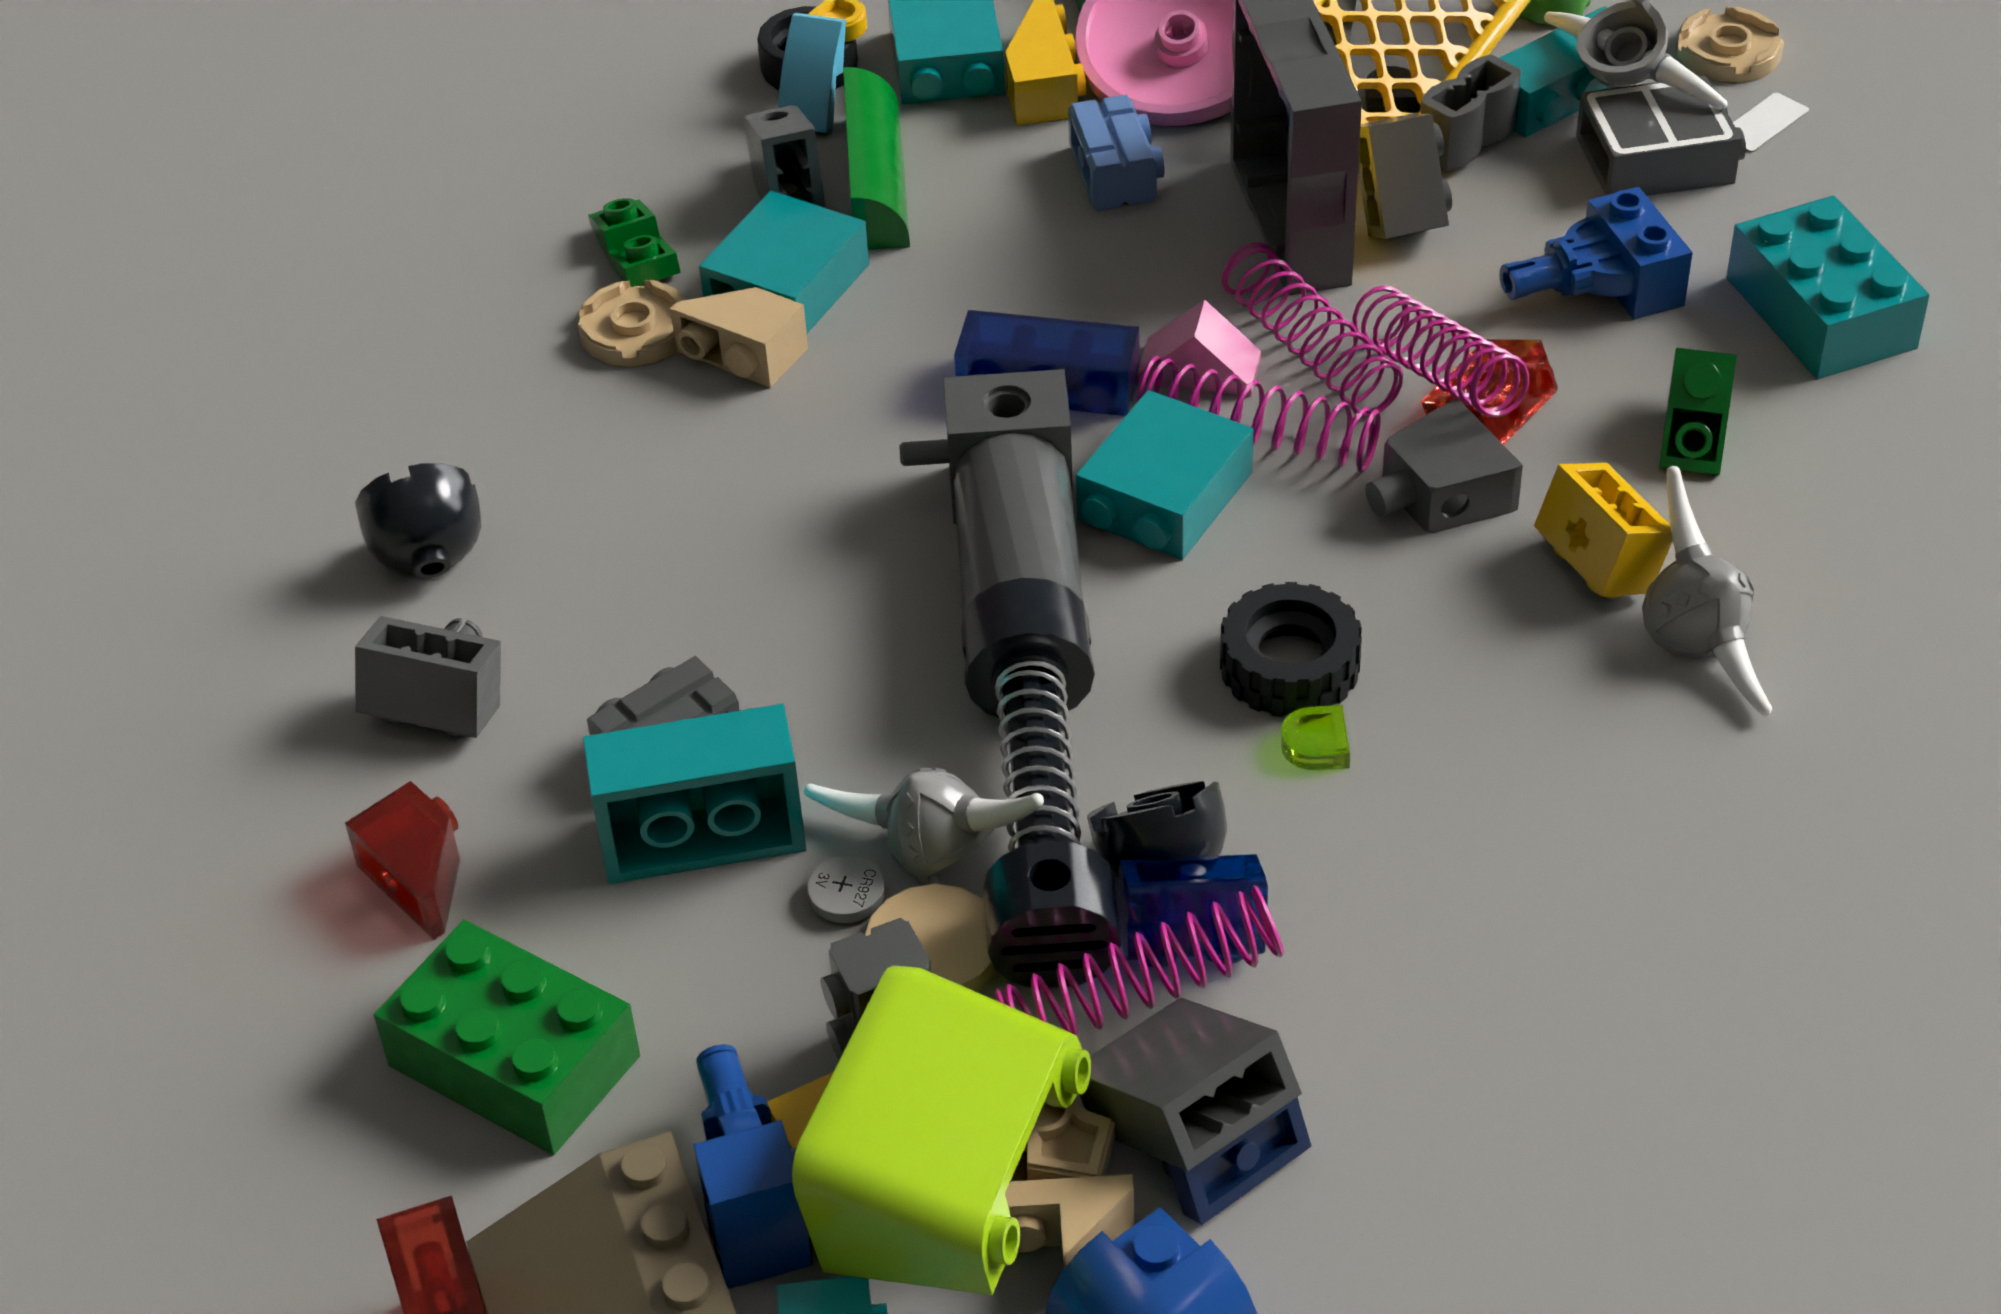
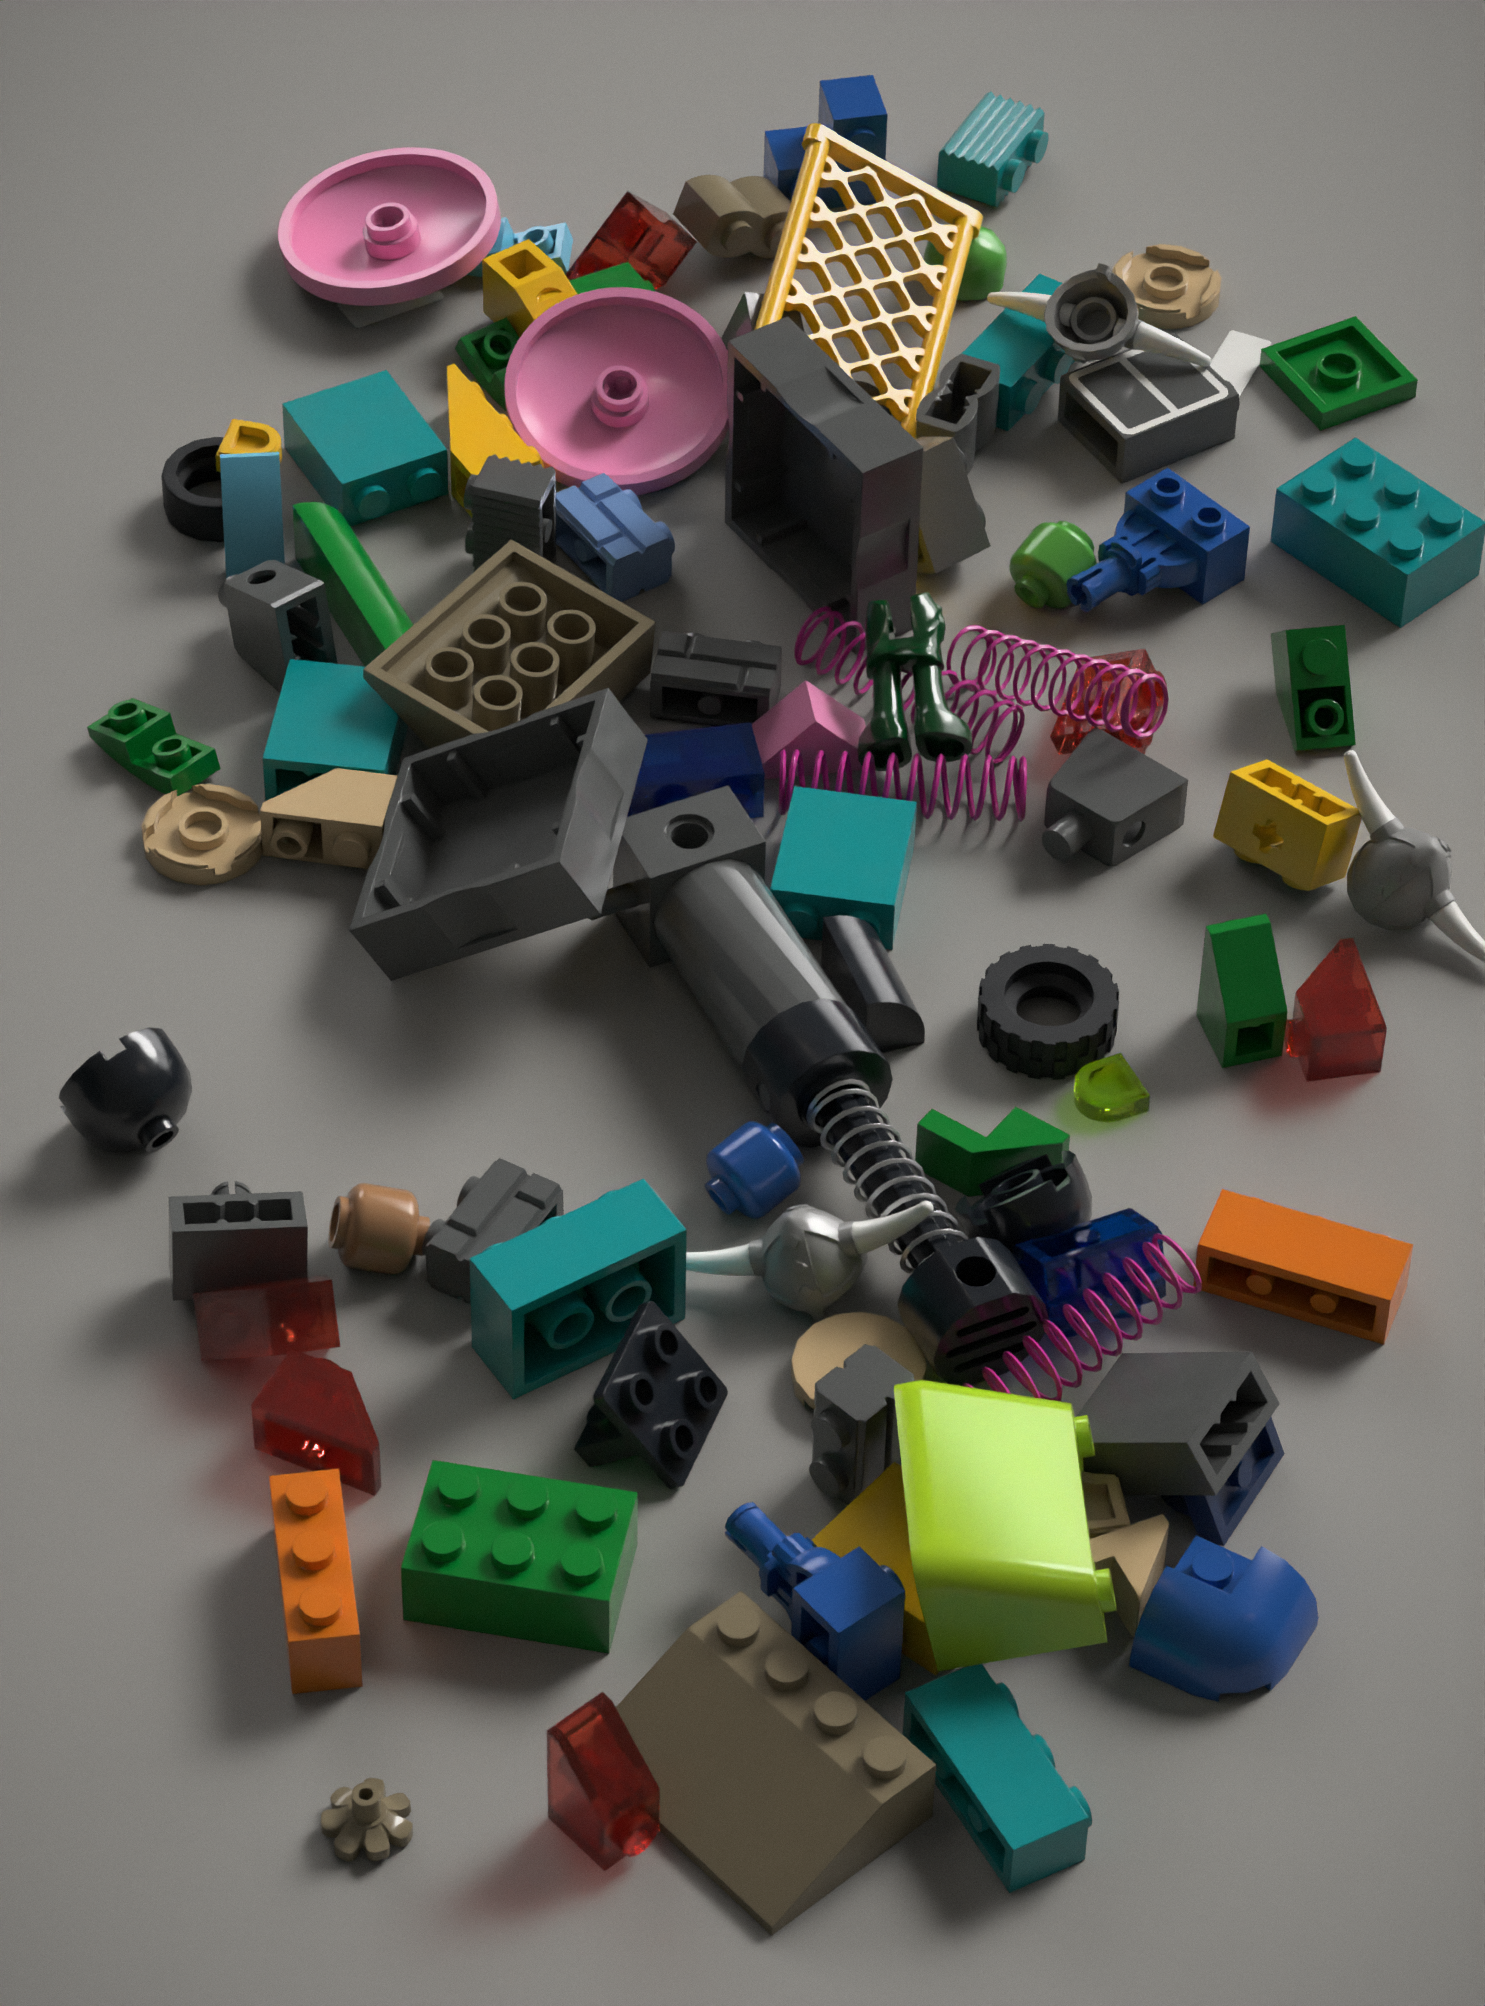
camera: 25 degrees left, 0 degrees up
(233, 1254) = (367, 1820): none -> dark tan plant
(311, 1006) = (315, 1581): none -> orange brick
(423, 750) = (267, 1319): none -> clear red slope
(562, 692) = (377, 1228): none -> medium nougat head
(713, 917) = (653, 1401): none -> black bracket
(846, 888) = (748, 1342): light grey piece -> none
(849, 370) = (500, 836): none -> dark grey tile
(931, 726) = (753, 1169): none -> blue head
(954, 237) = (508, 647): none -> dark tan slope
(1024, 118) = (511, 504): none -> dark grey brick
(1134, 585) = (869, 982): none -> black brick
(1135, 285) = (713, 679): none -> dark grey brick
(1139, 768) = (966, 1158): none -> green slope
(1315, 297) = (935, 726): none -> dark green piece
(1417, 959) = (1303, 1266): none -> orange brick
(1479, 673) = (1242, 992): none -> green slope
(1493, 243) = (1048, 560): none -> bright green head
(1567, 723) = (1337, 1019): none -> clear red slope
(1859, 145) = (1338, 373): none -> green tile

